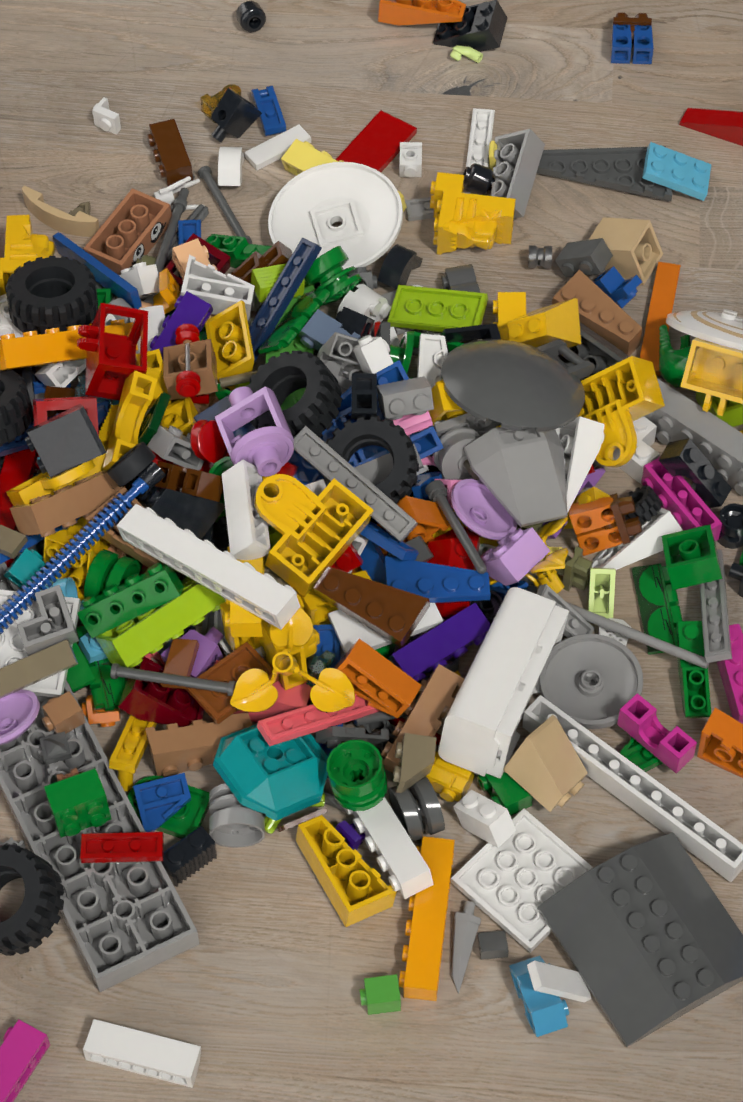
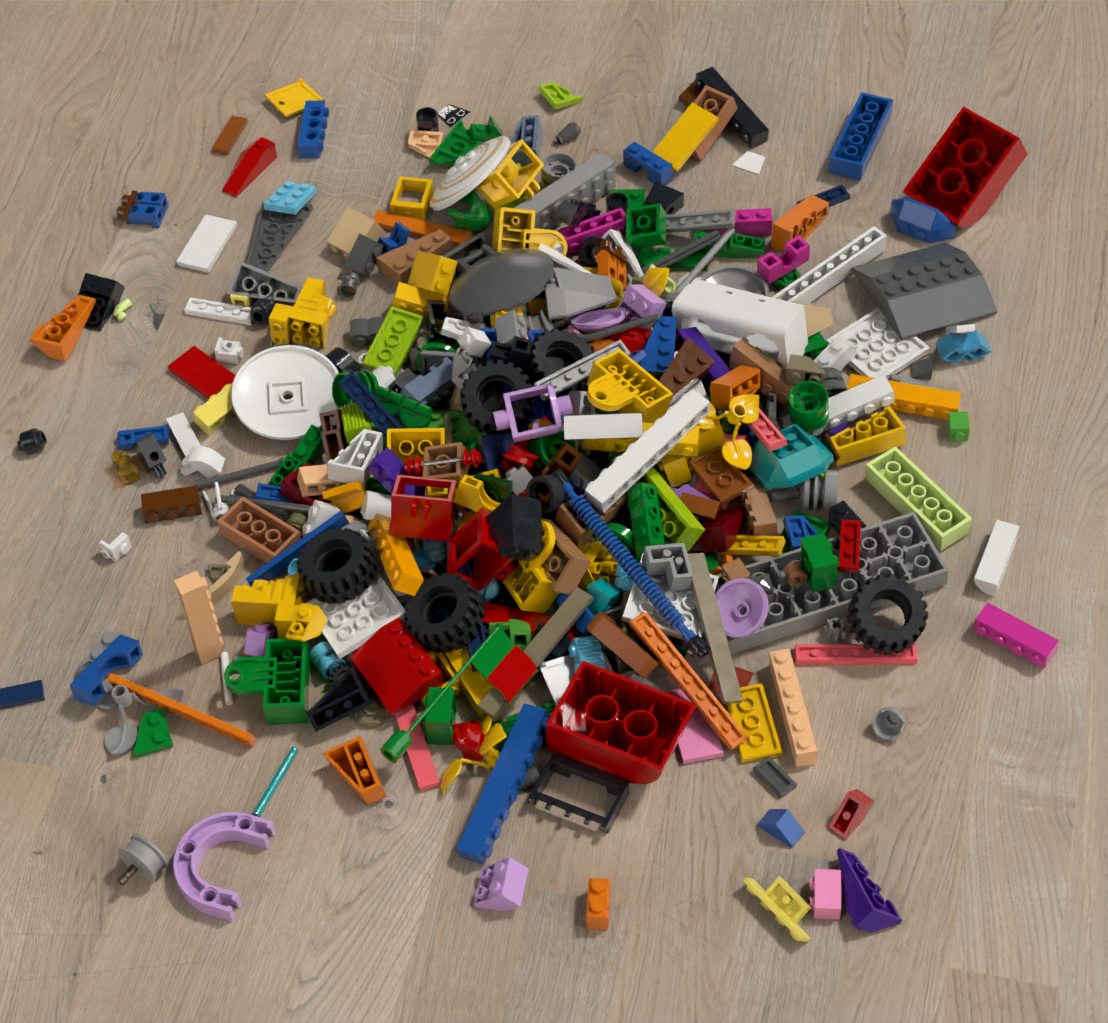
camera: 80 degrees left, 5 degrees down
(191, 682) = (706, 536): dark grey bar -> none
(235, 942) = (915, 492): none -> yellowish green brick
(590, 110) = (206, 243): none -> white tile
(656, 609) = (685, 251): none -> dark grey axle
(709, 280) = (417, 210): none -> yellow window

